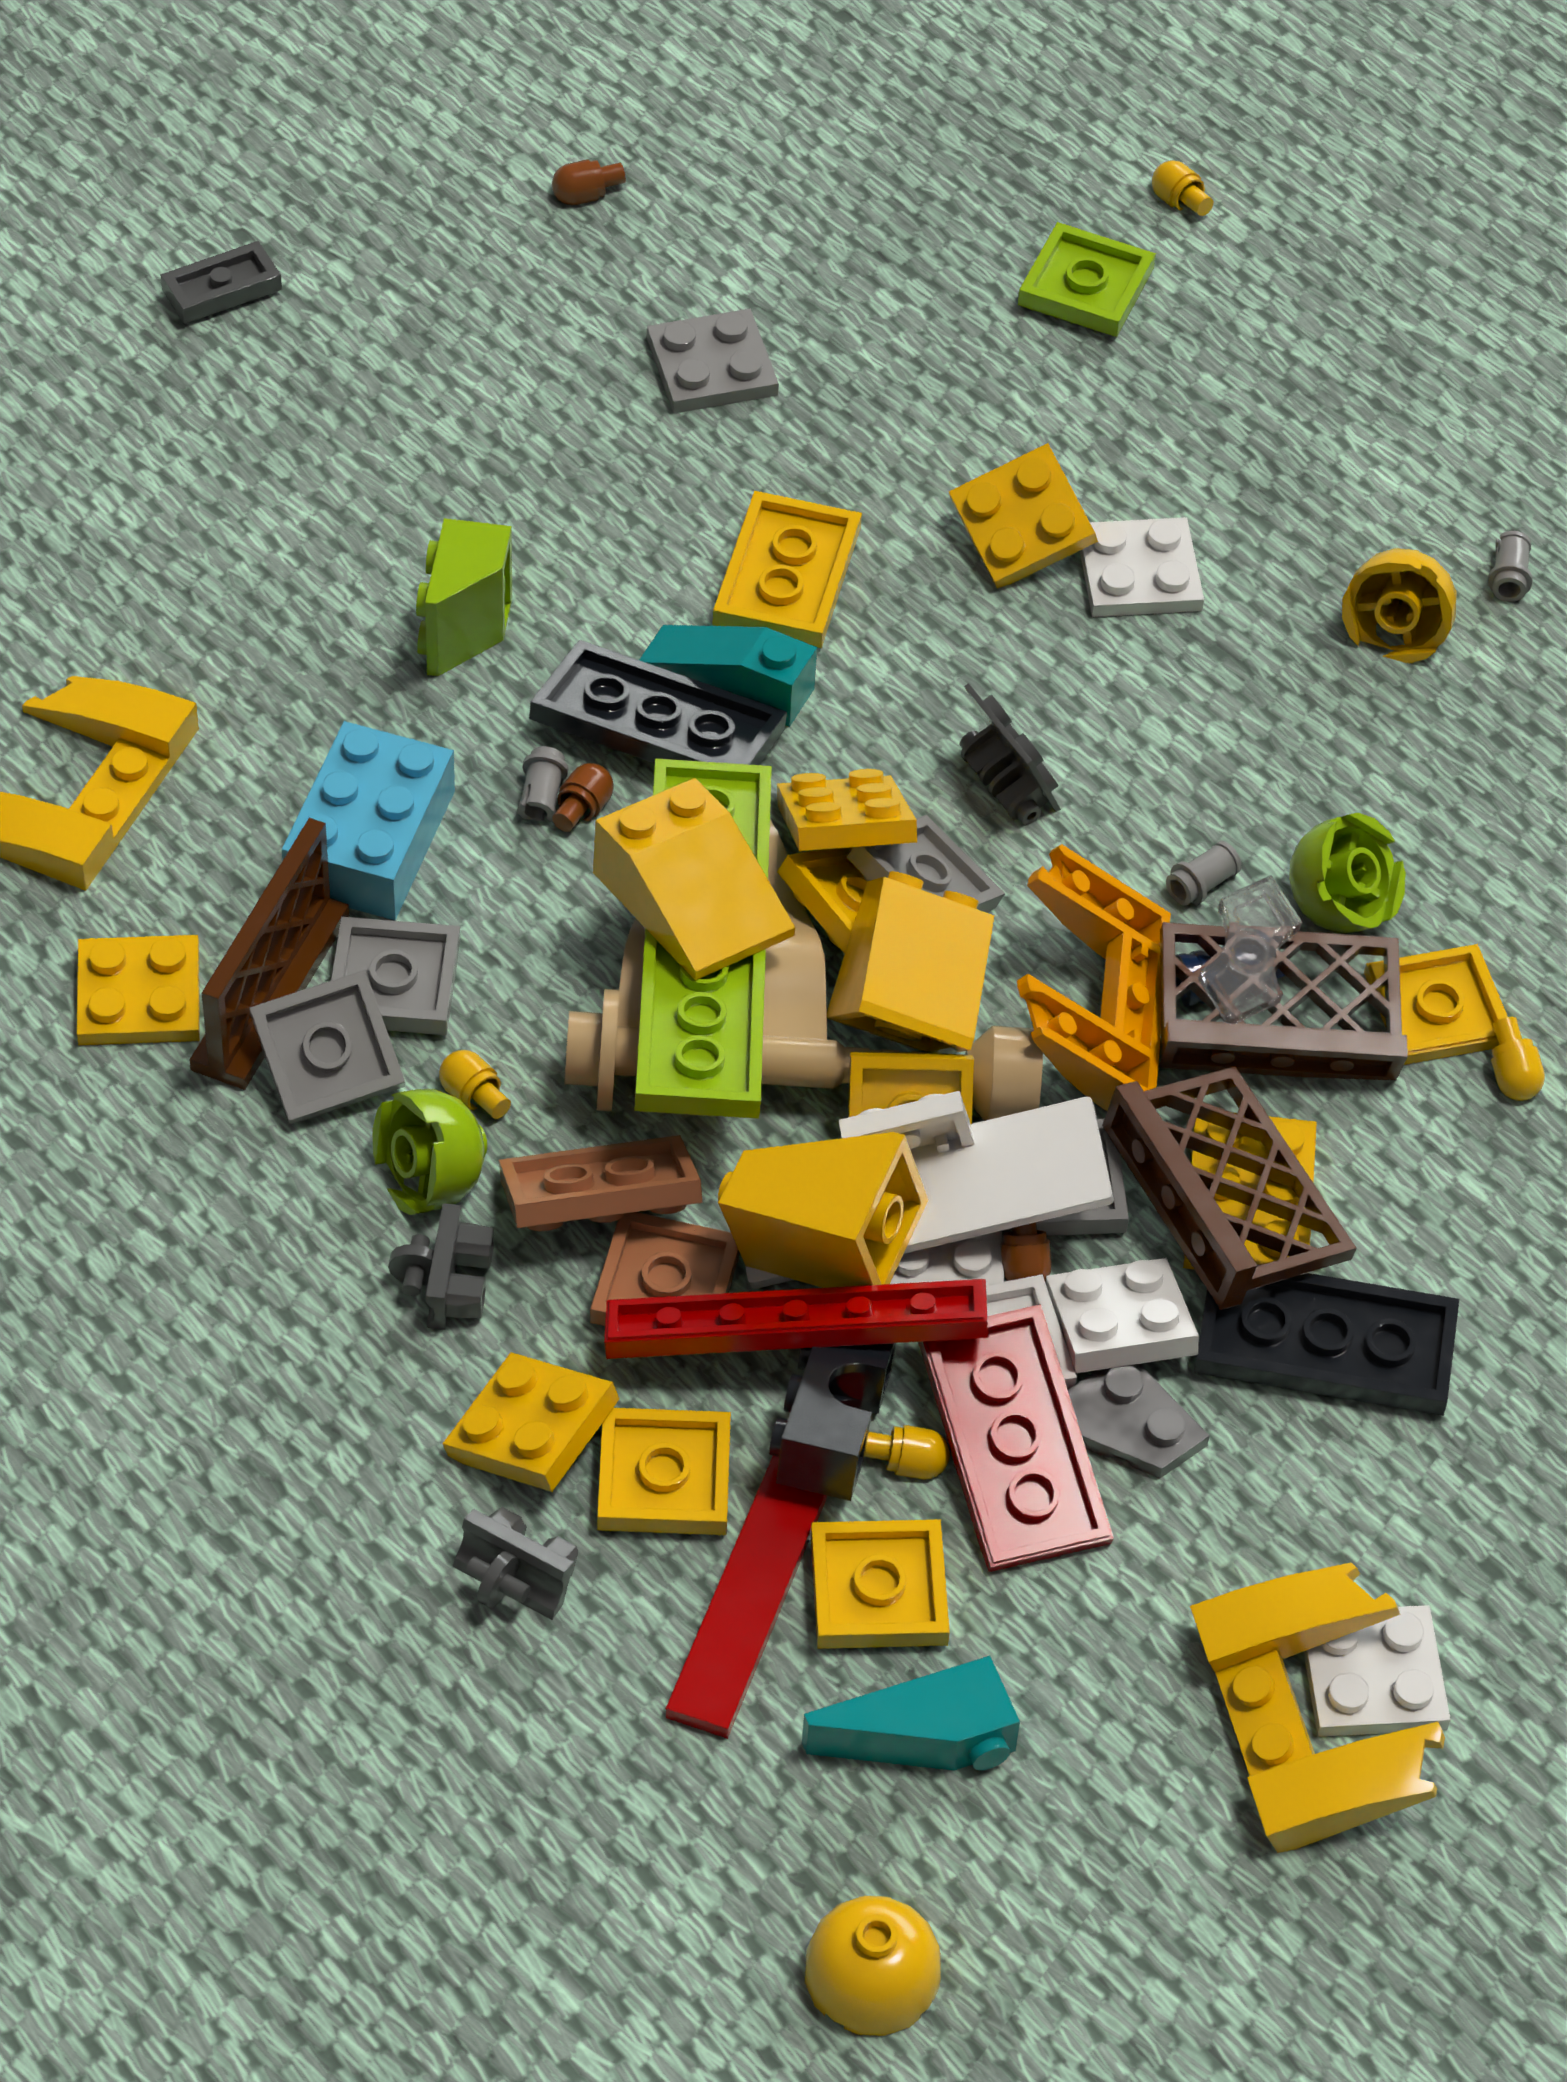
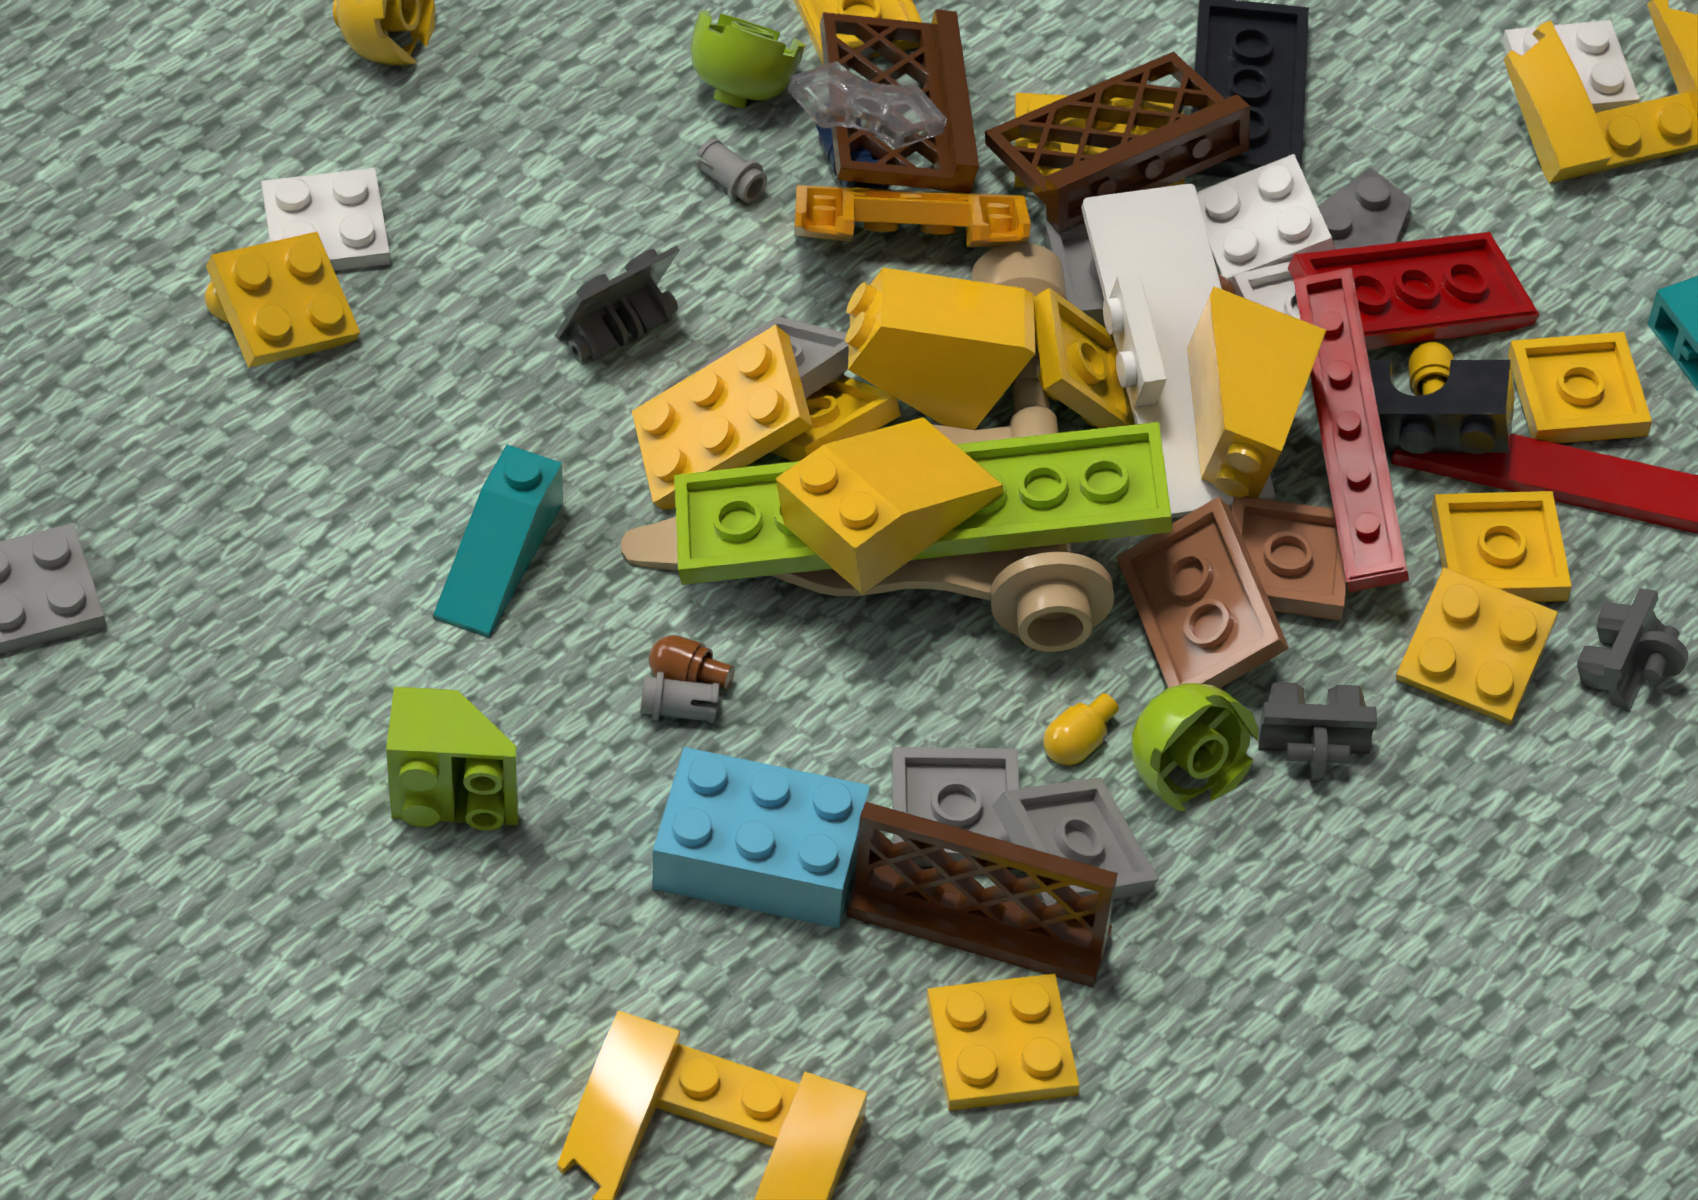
camera: 95 degrees left, 0 degrees up
(653, 710) = (581, 599): black plate -> none
(788, 567) = (353, 503): yellow plate -> none

